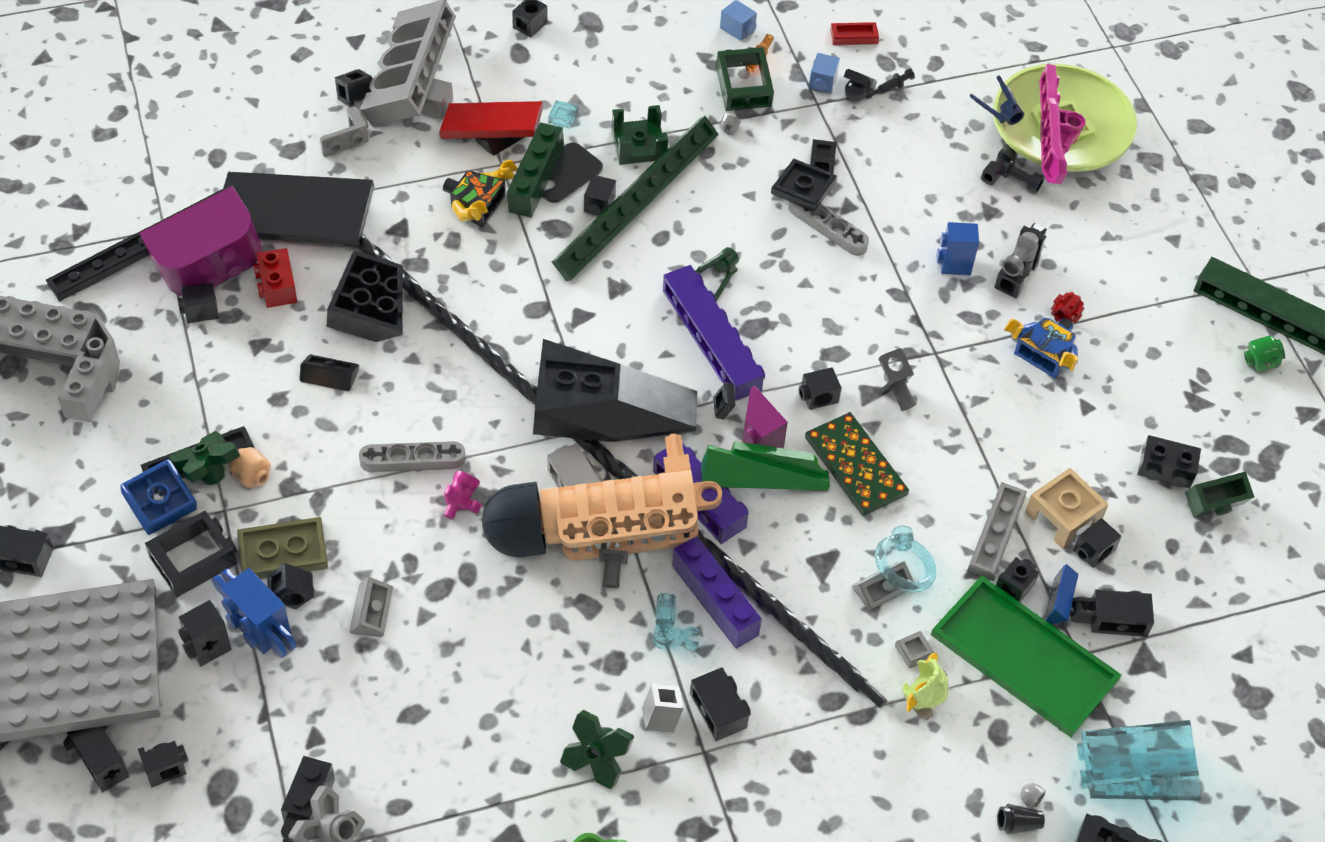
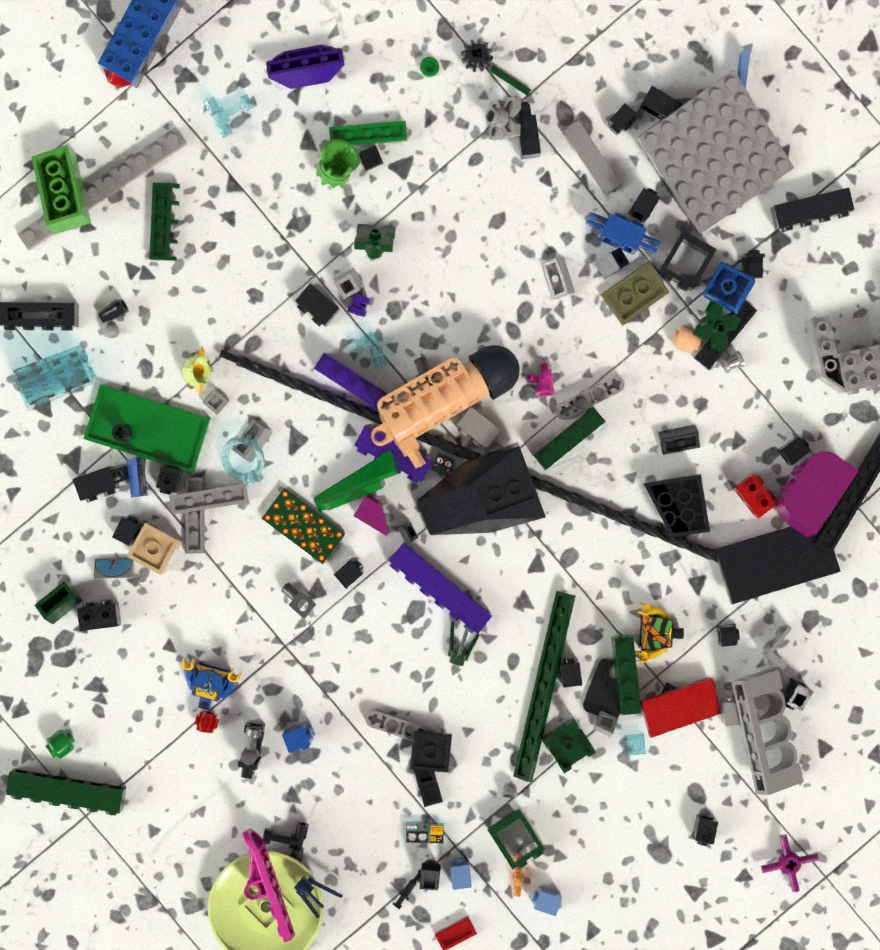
camera: 165 degrees right, 35 degrees up
(110, 517) = (753, 263): none -> black bracket
(209, 421) = (732, 362): none -> light grey bush
(236, 736) = (591, 157): none -> light grey tile
(396, 163) = (727, 635): none -> black brick
(467, 418) = (569, 438): none -> dark green brick
(586, 137) = (605, 723): none -> light grey tile
(640, 459) = (443, 464): none -> tile
(663, 674) = (357, 309): none -> dark purple wheel
(847, 124) = (424, 832): none -> tile
(971, 532) = (208, 499): none -> light grey plate
(1066, 655) = (118, 428): none -> black bush
(1132, 510) = (113, 568): none -> slope

